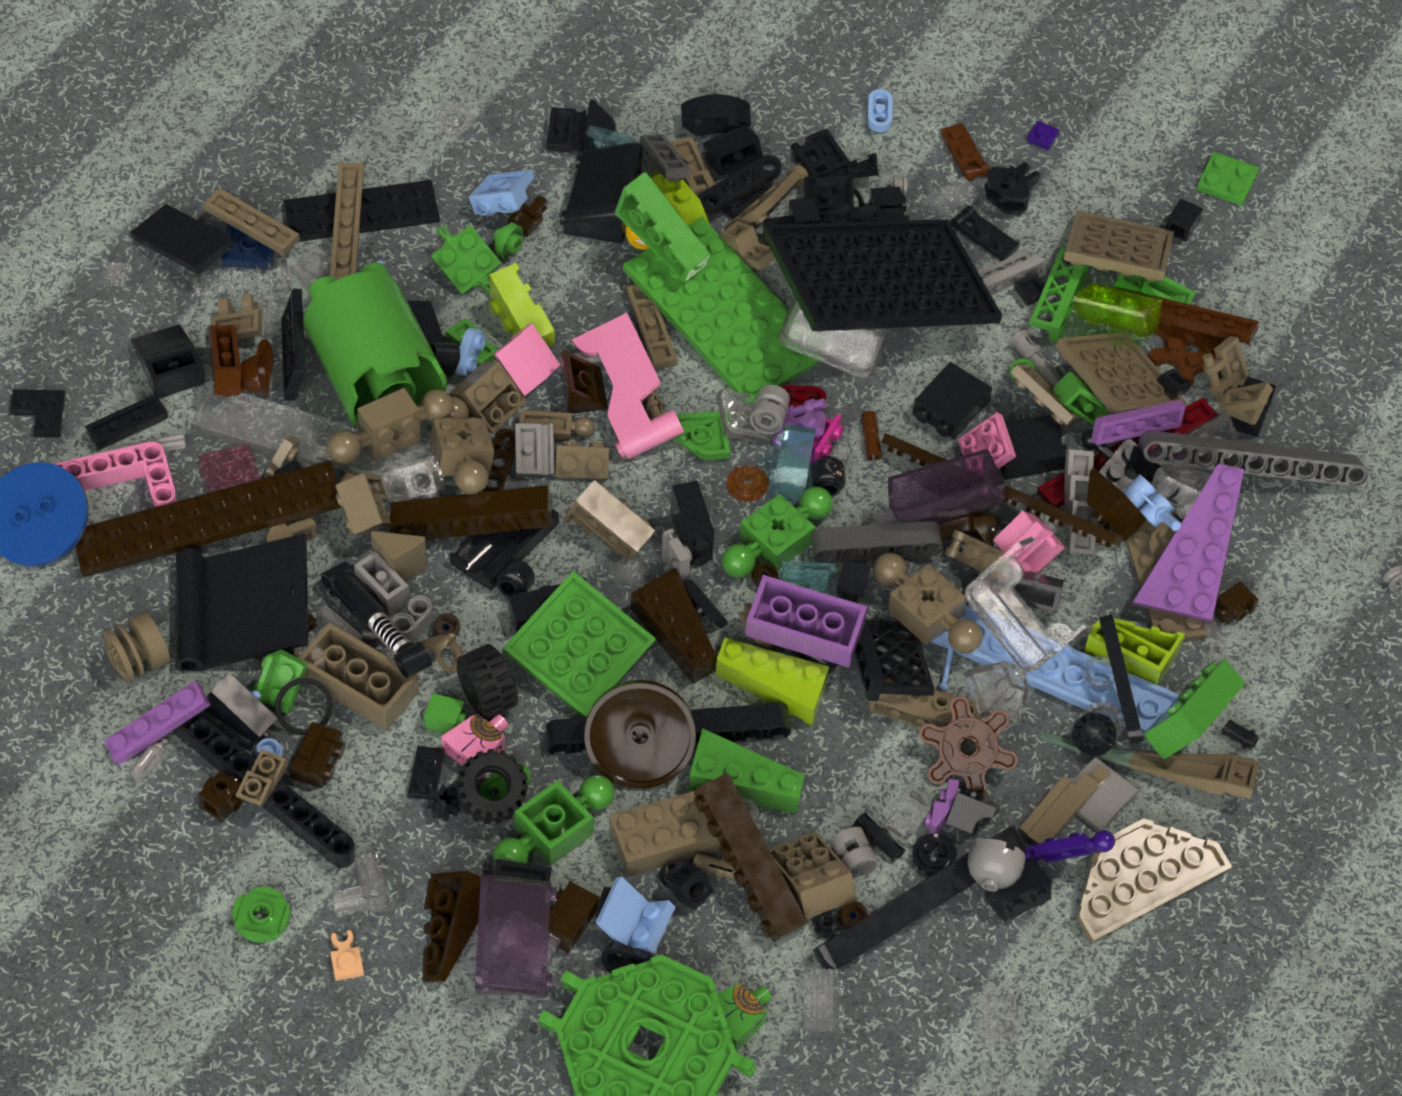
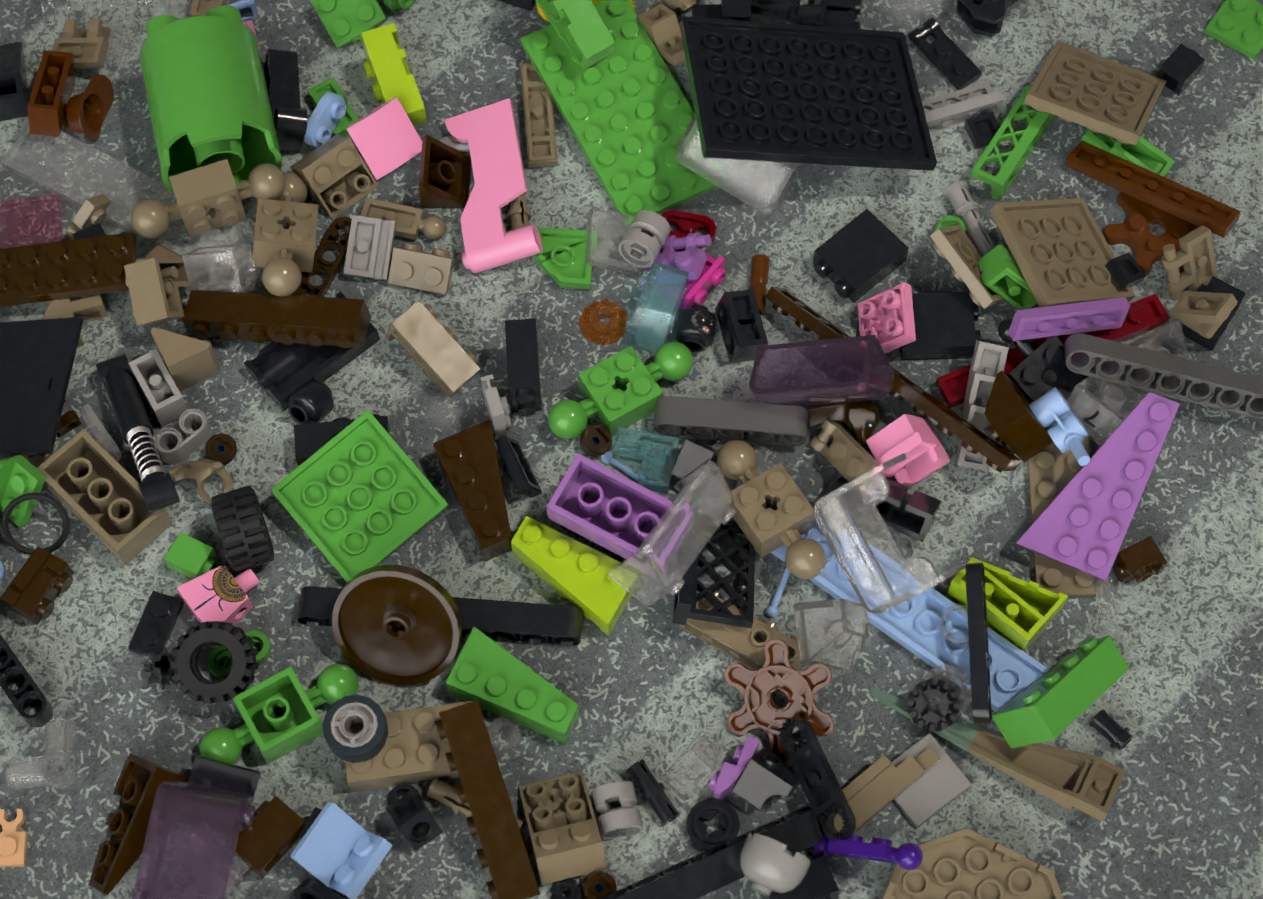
camera: 15 degrees right, 10 degrees up
(293, 345) = (130, 87): black tile -> none
(627, 829) = (358, 746): none -> wheel
(851, 650) = (678, 535): none -> clear windscreen
(866, 467) = (740, 325): none -> black brick
(1014, 800) = (817, 779): none -> black plate
(1118, 309) = (1078, 171): clear neon green slope -> none

